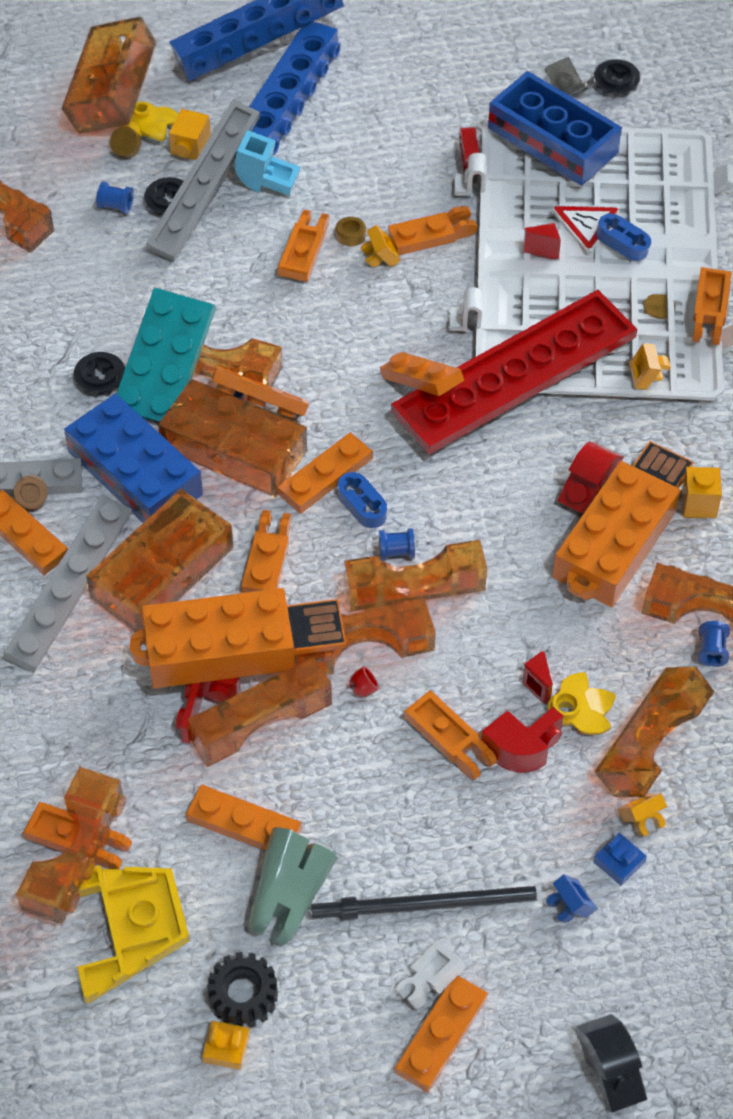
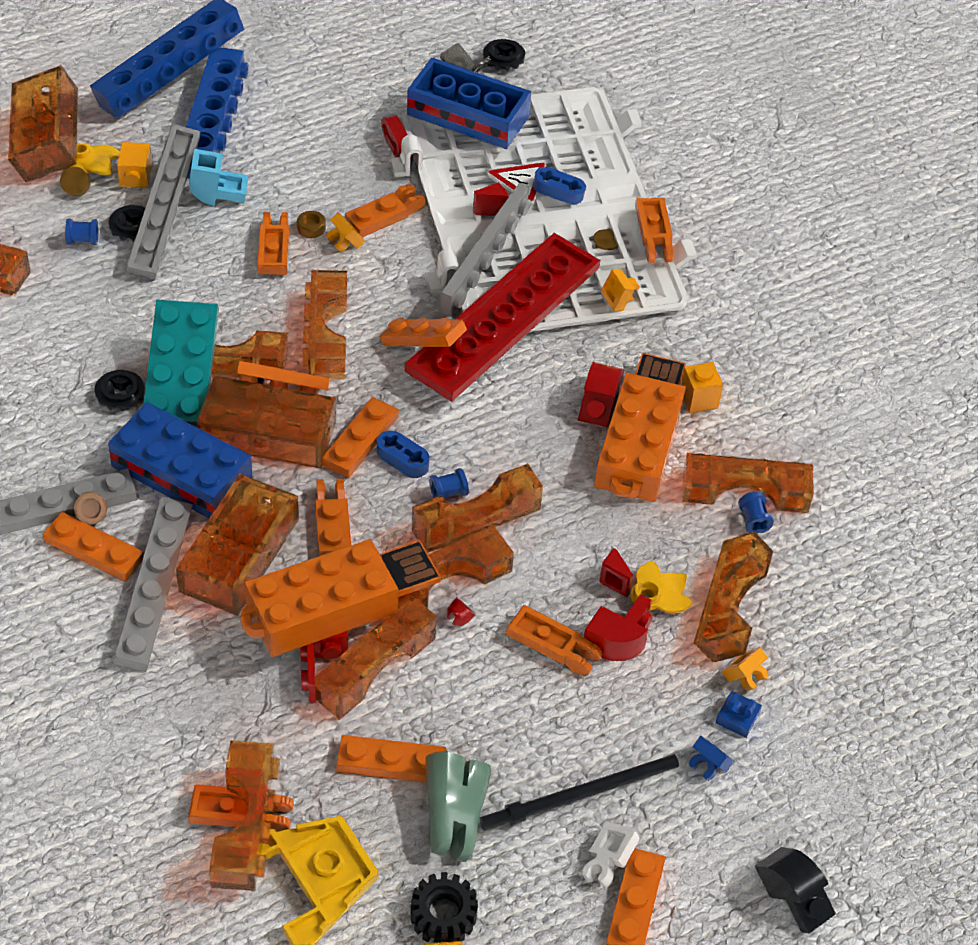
camera: 20 degrees left, 5 degrees down
(338, 316) = (326, 348): none -> clear orange arch
(517, 294) = (482, 253): none -> light grey plate

